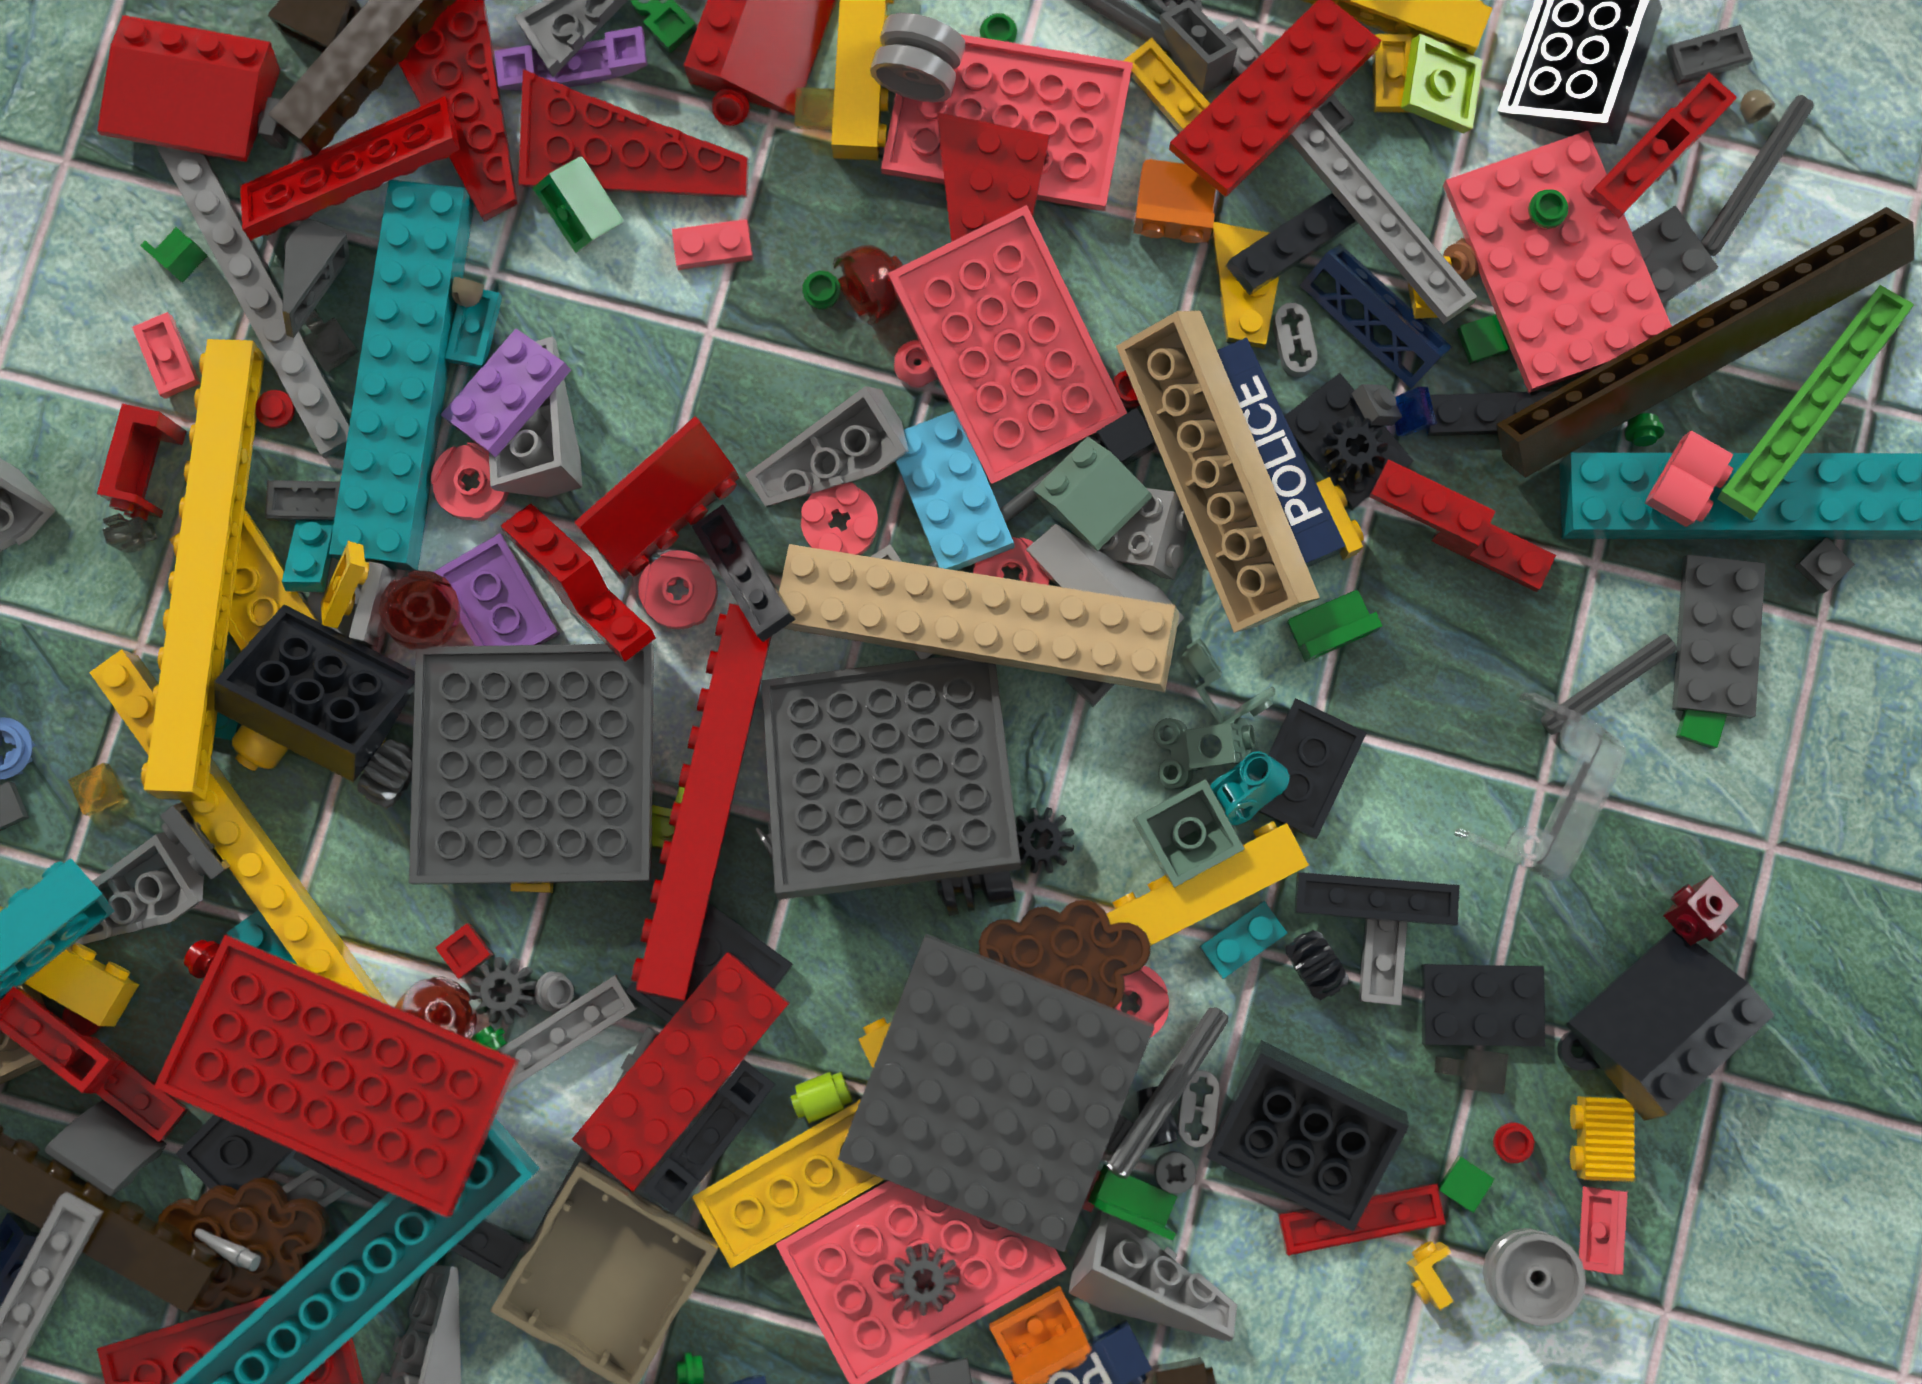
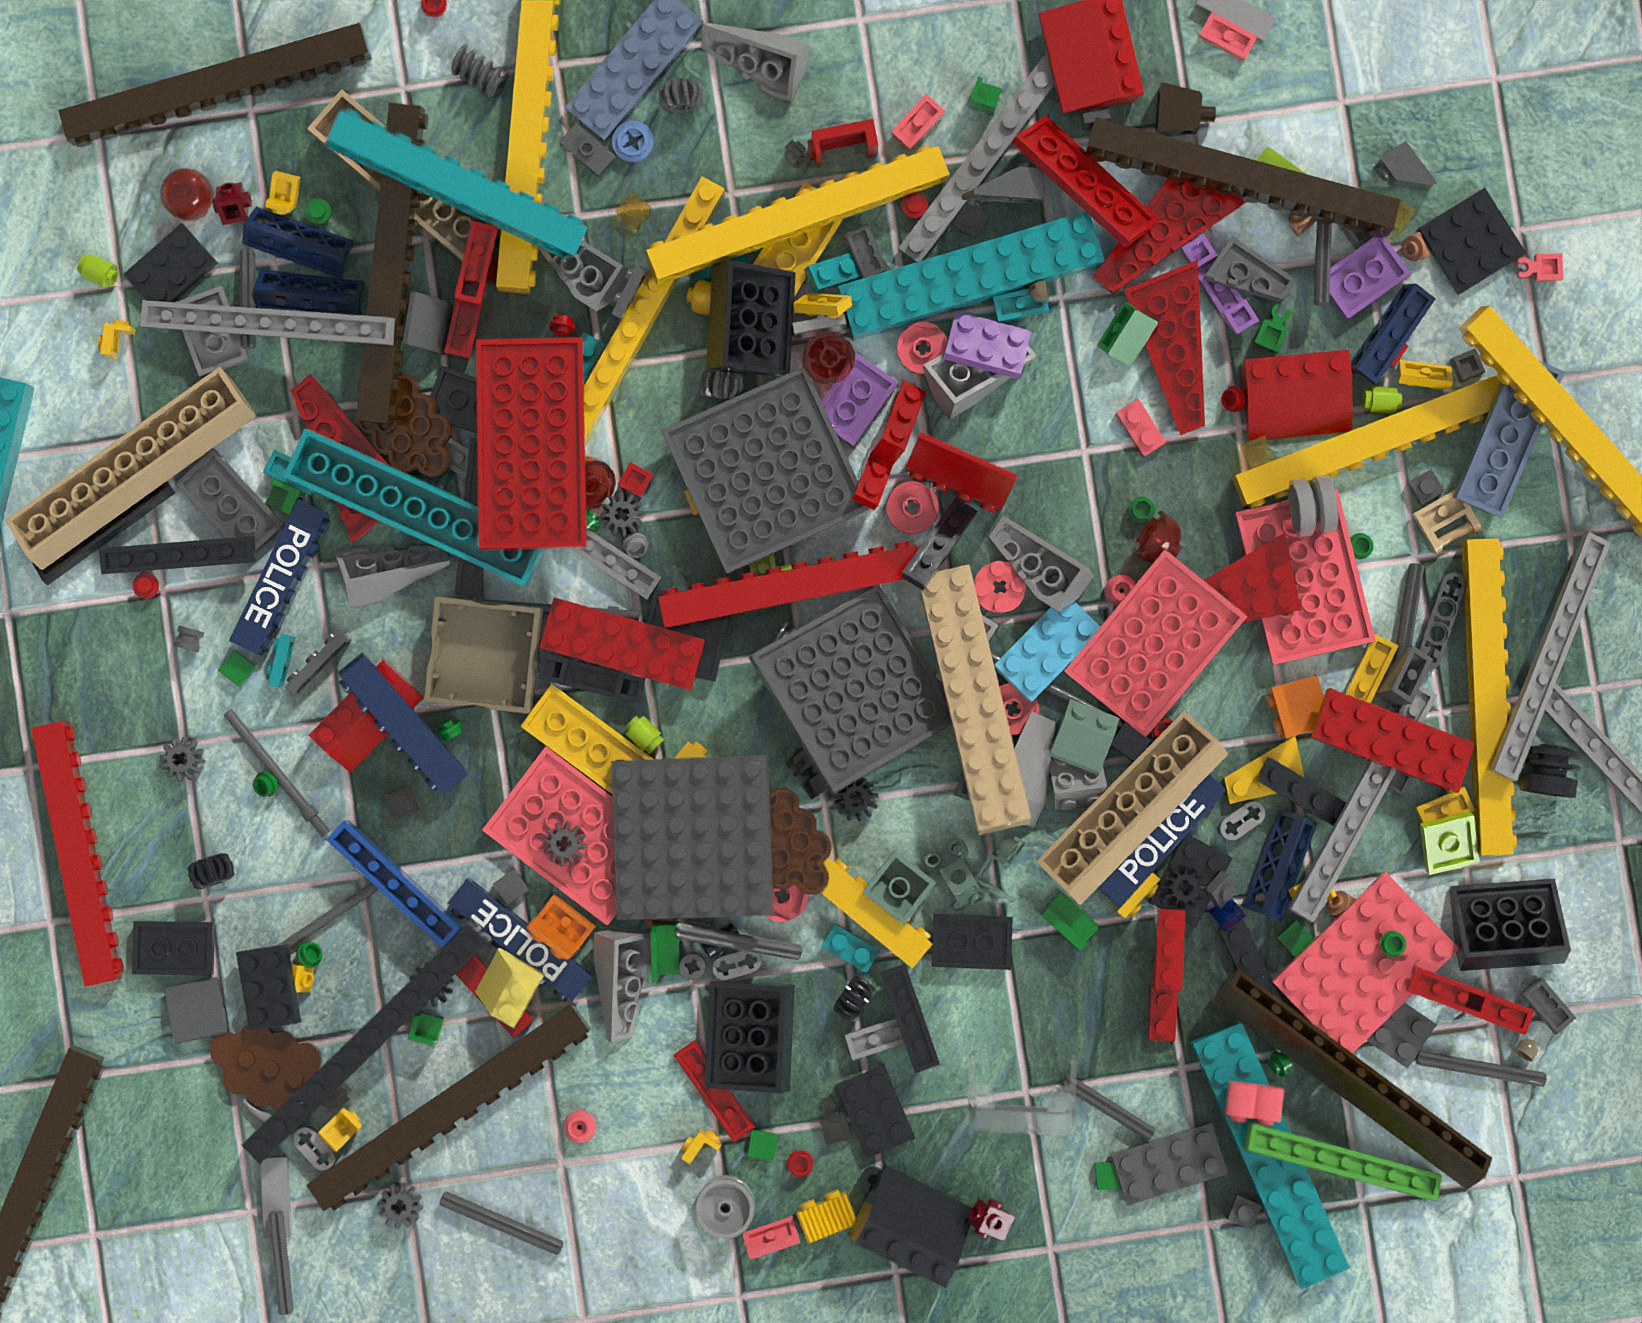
camera: 60 degrees right, 5 degrees up
(232, 1252) = (400, 429): light grey helmet -> none
(1247, 789) = (940, 909): teal piece -> none

